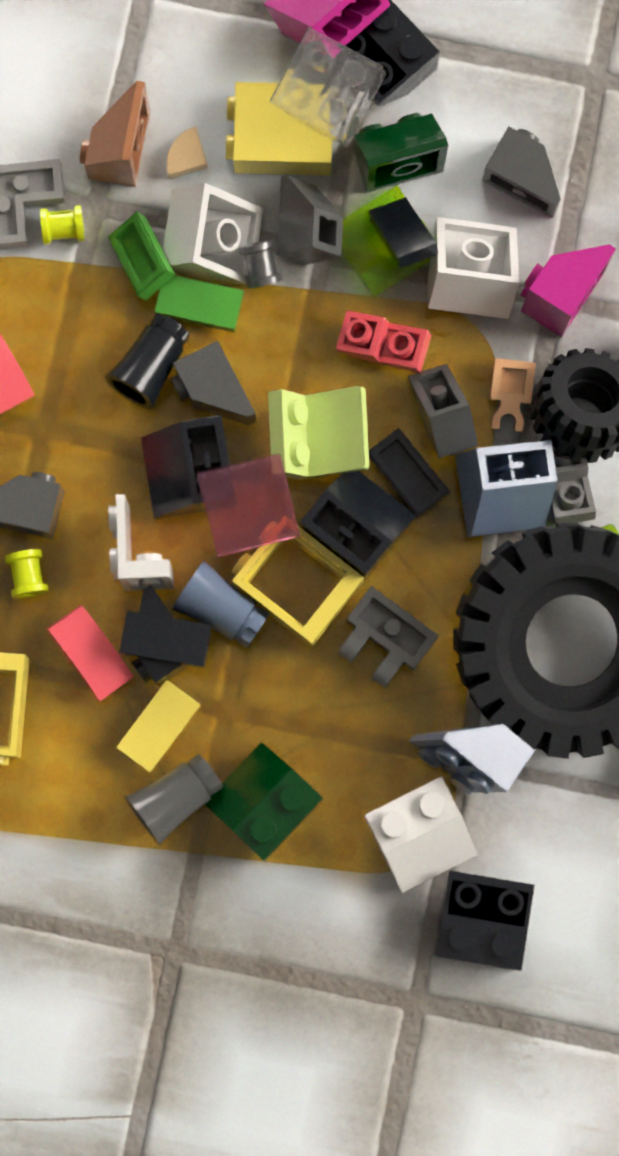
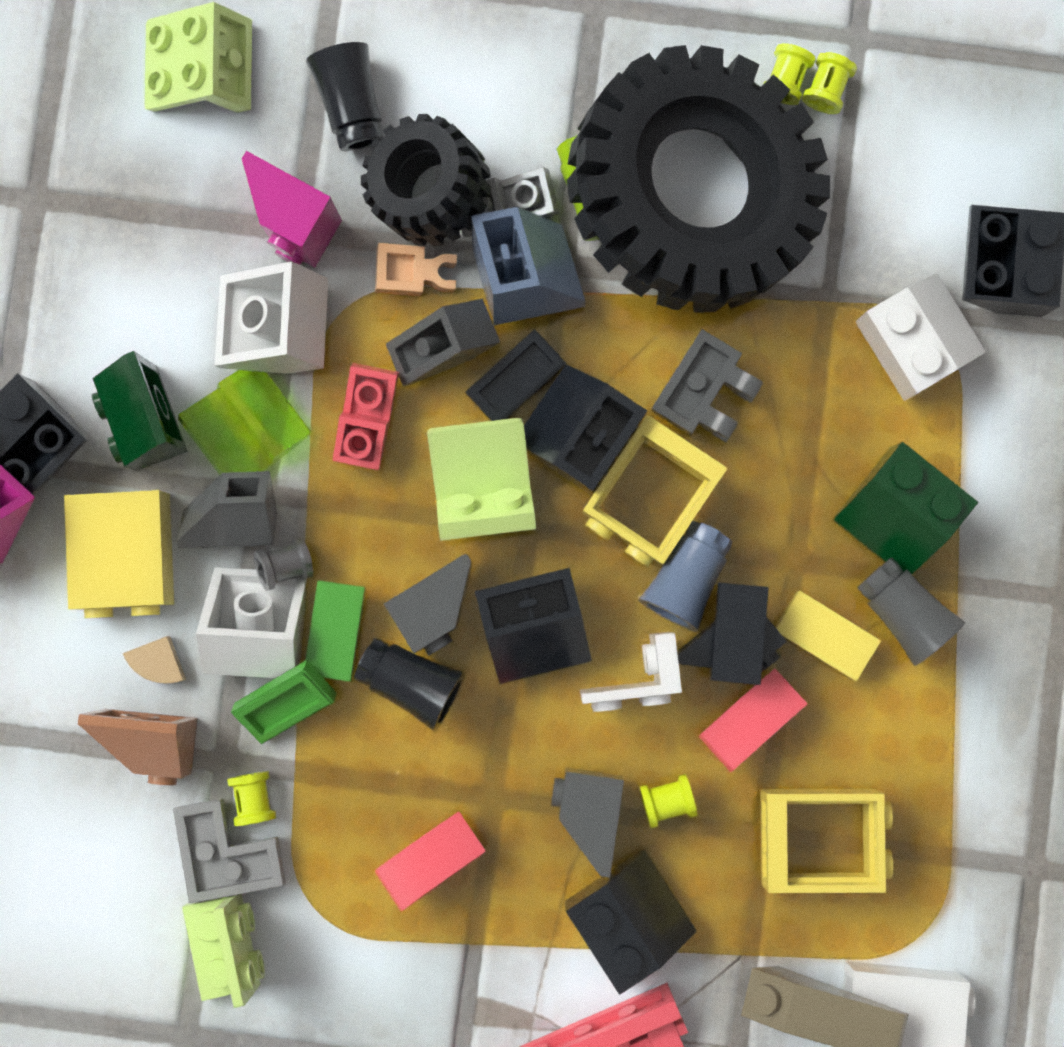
camera: 90 degrees left, 5 degrees up
(248, 504) = (578, 550): clear pink tile -> none
(328, 86) = (70, 497): clear slope -> none
(403, 232) = (238, 400): black tile -> none
(475, 756) = (836, 277): slope -> none
(523, 171) = (152, 270): dark grey slope -> none

